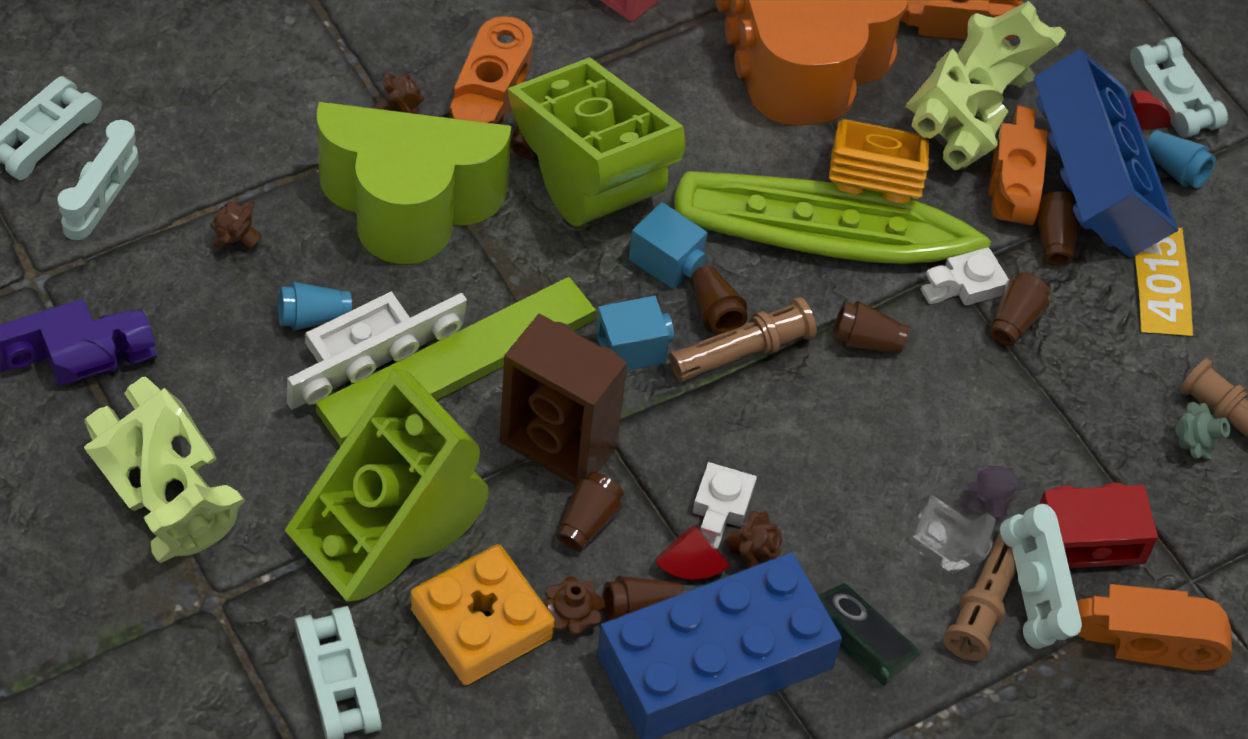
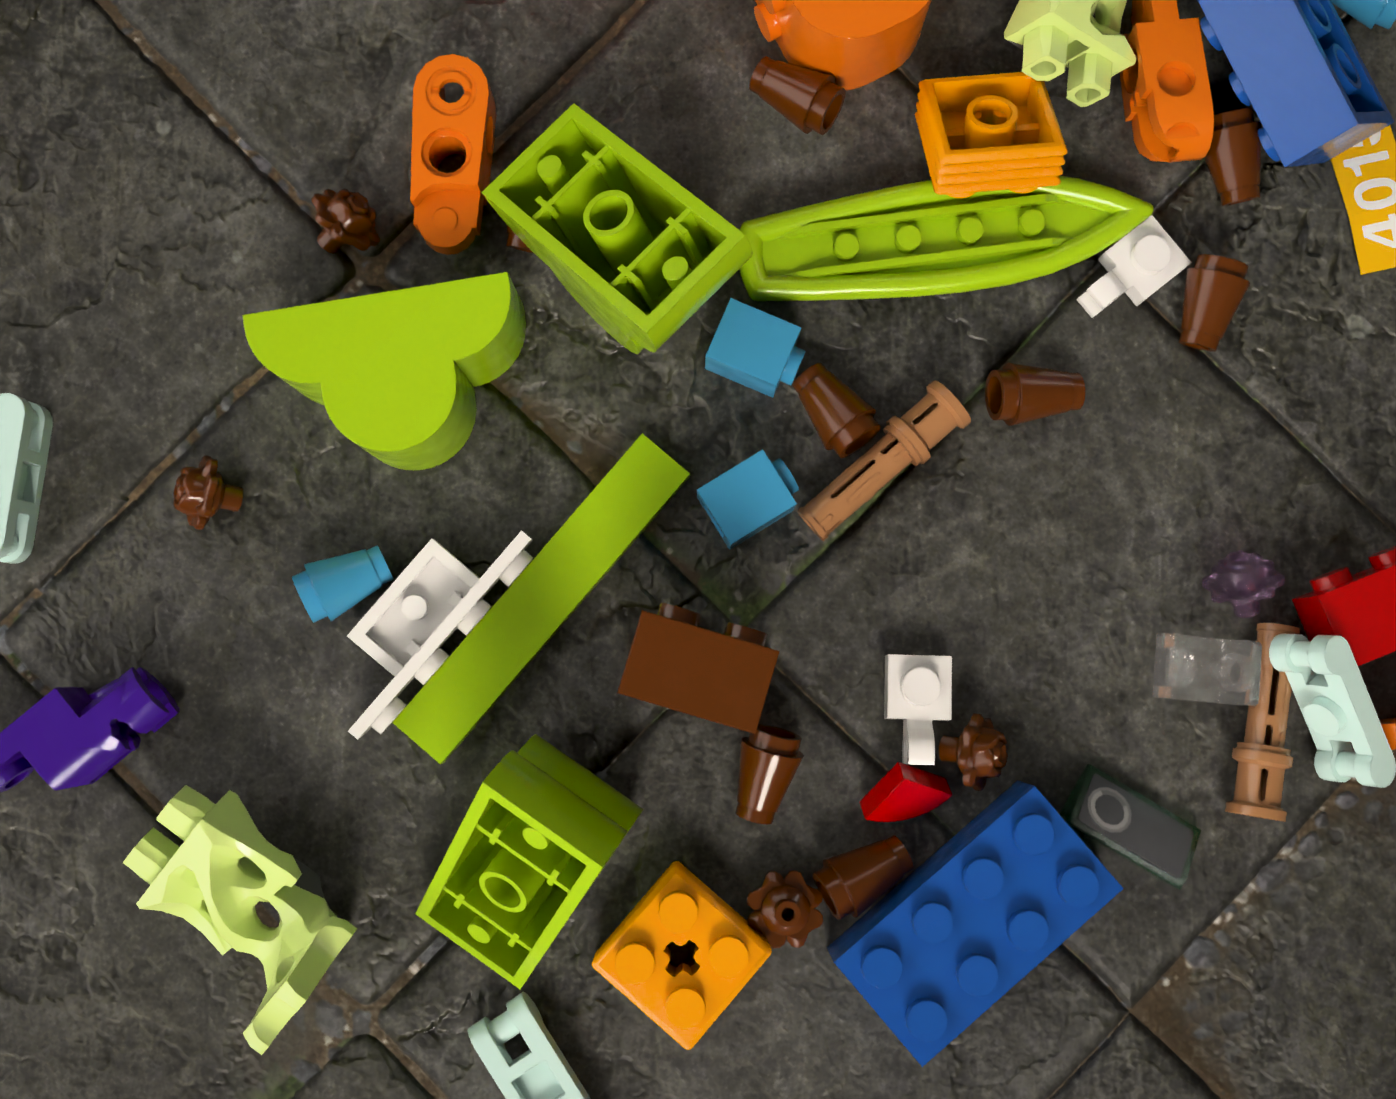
camera: 10 degrees left, 30 degrees up
(752, 112) = (799, 94): none -> reddish brown cone

